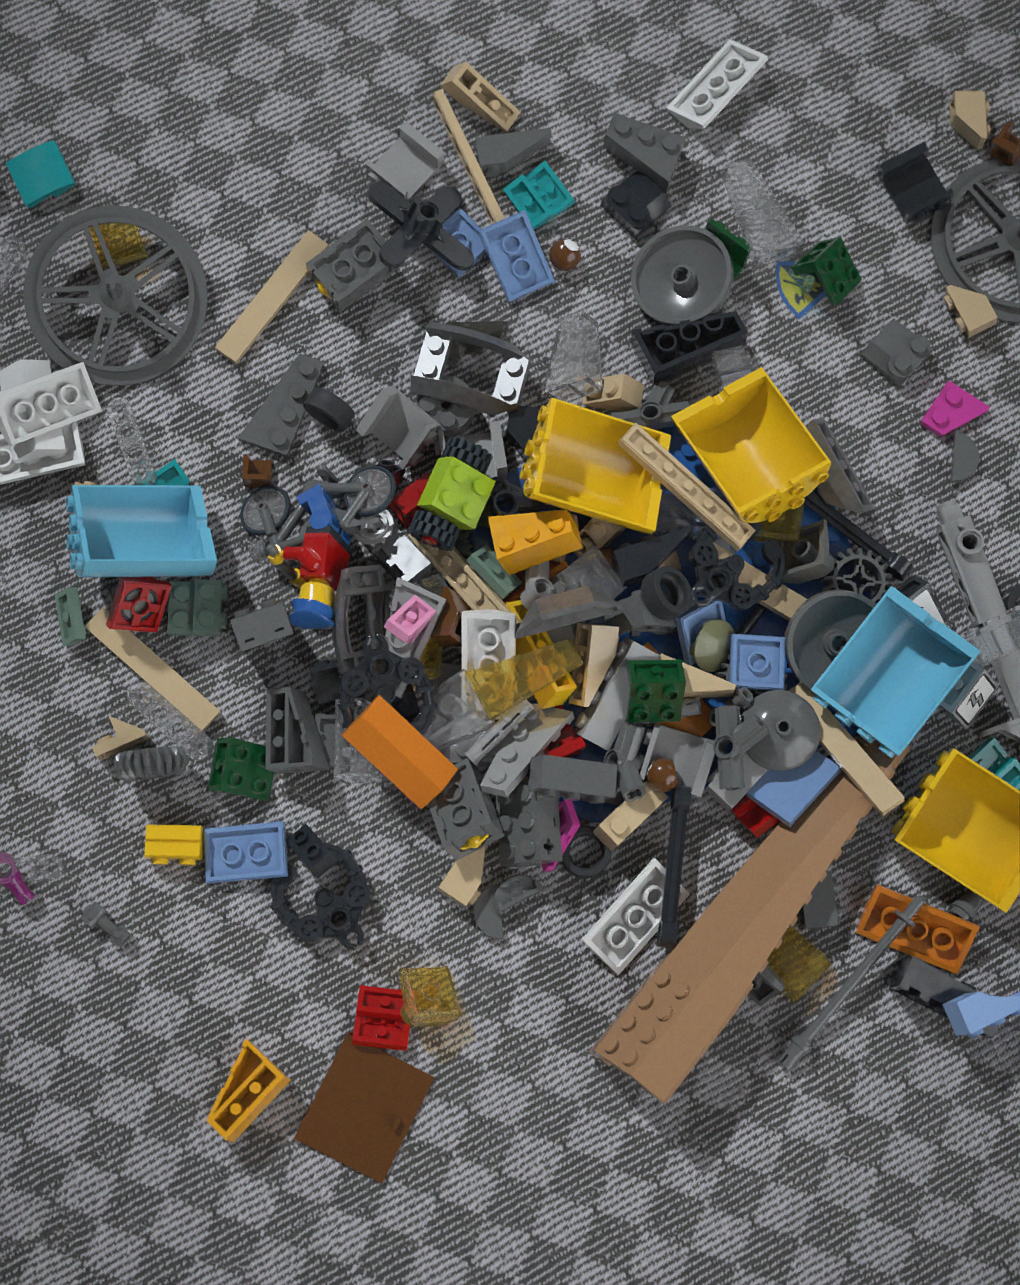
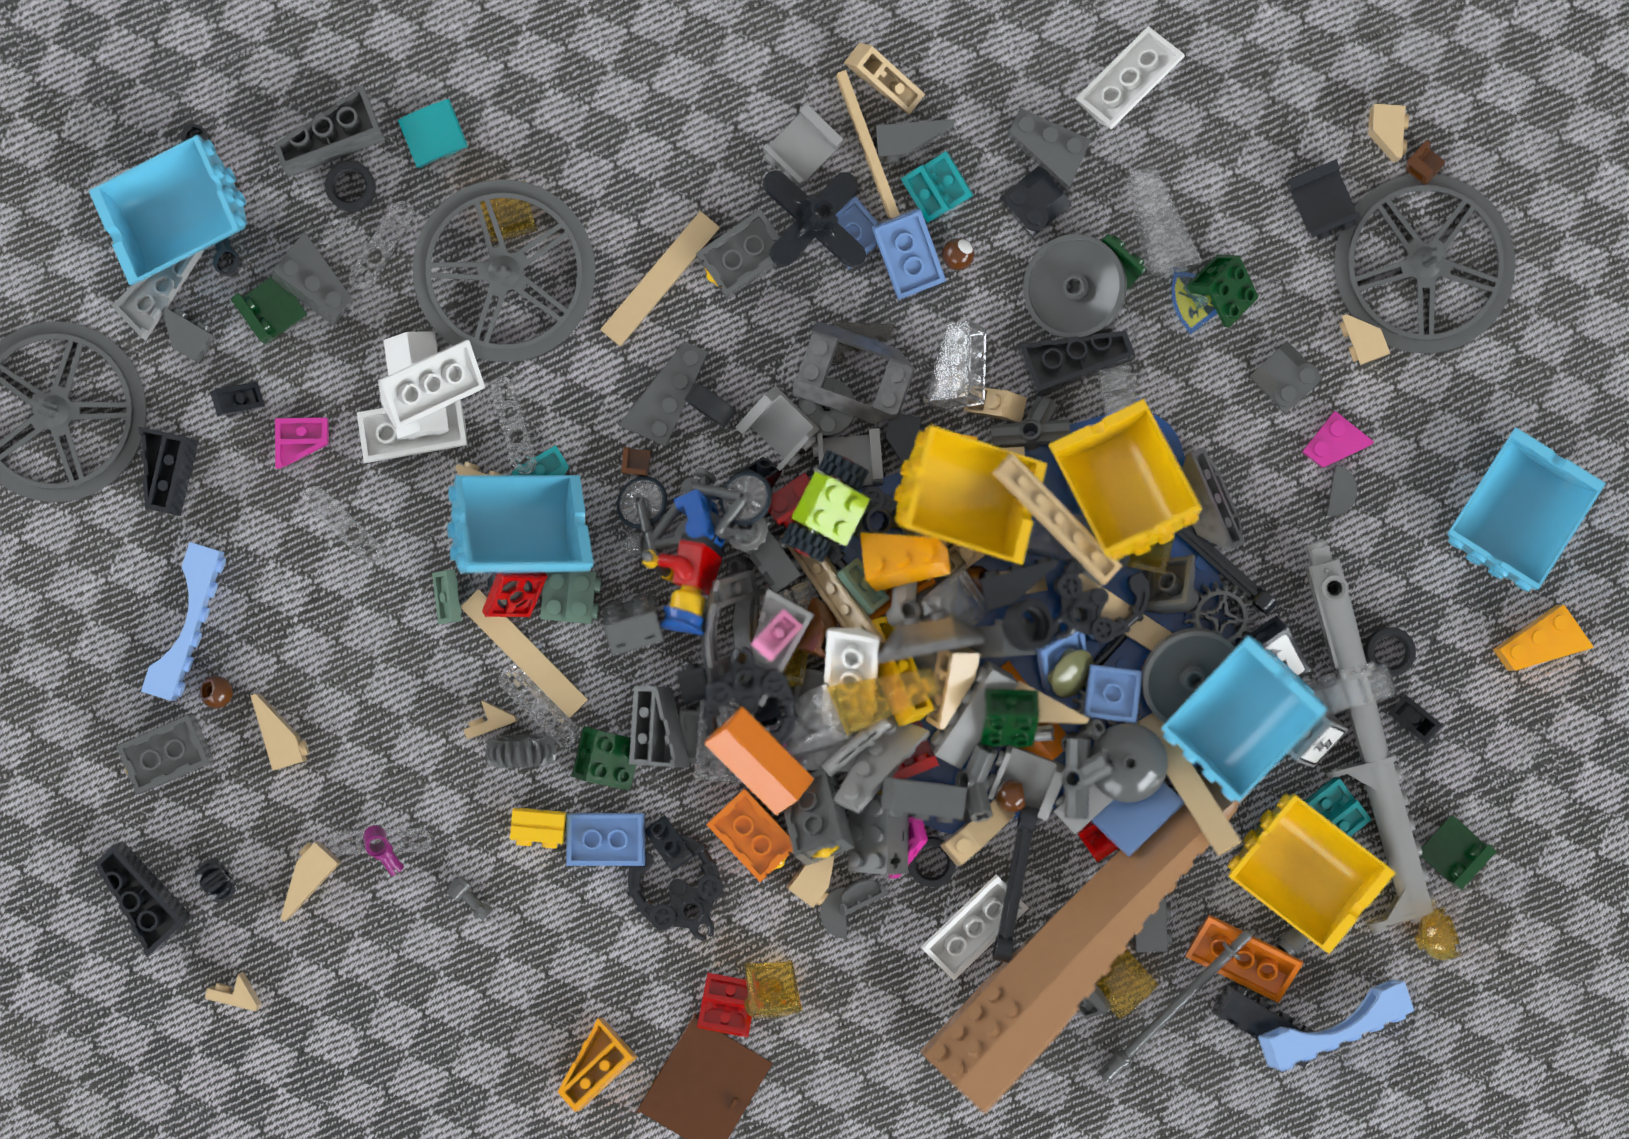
camera: 10 degrees right, 10 degrees up
(397, 834) = (752, 834): none -> orange piece

